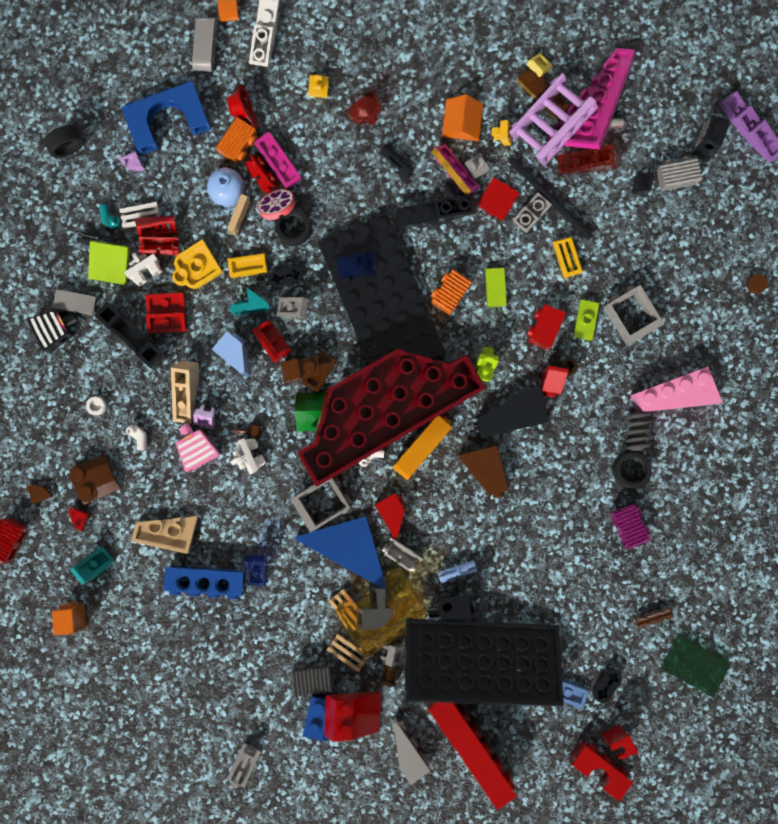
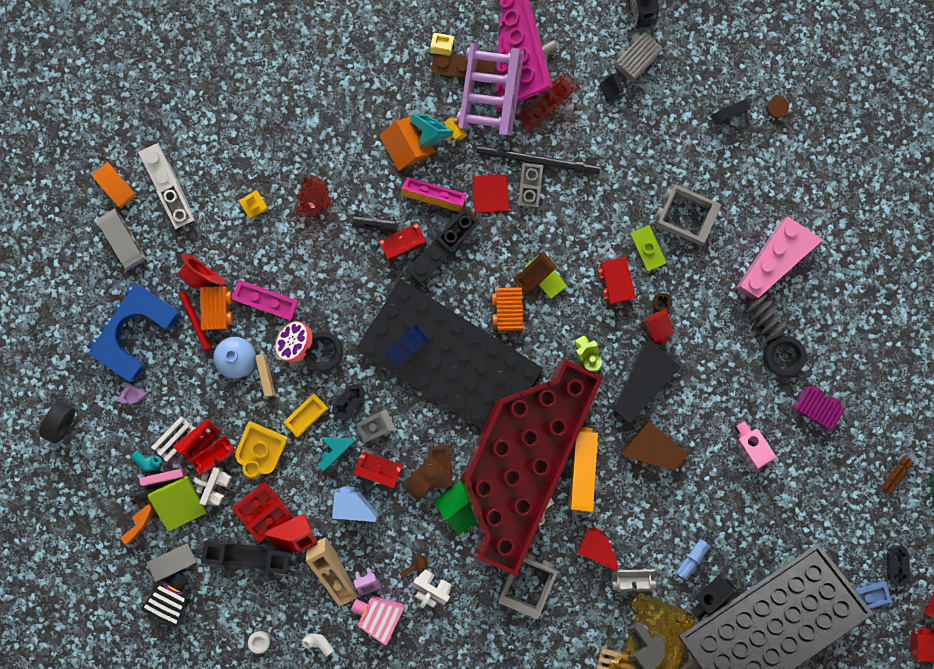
camera: 30 degrees left, 0 degrees up
(75, 256) = (141, 519): none -> orange slope
(112, 236) = (163, 477): none -> bright pink tile
(176, 344) = (293, 535): none -> red slope
(216, 139) = (194, 320): none -> red bar
(258, 167) = (268, 323): red hinge -> none
(349, 546) = (581, 606): blue tile -> none
(408, 189) = (403, 242): none -> red hinge
(477, 166) = (450, 177): light grey tile -> none
(487, 121) = (432, 130): none -> teal slope
(489, 278) = (535, 273): none -> reddish brown tile
(560, 528) = (759, 454): none -> bright pink torso
(572, 272) = (578, 203): yellow tile -> none
(719, 262) = (730, 112): none -> black beam

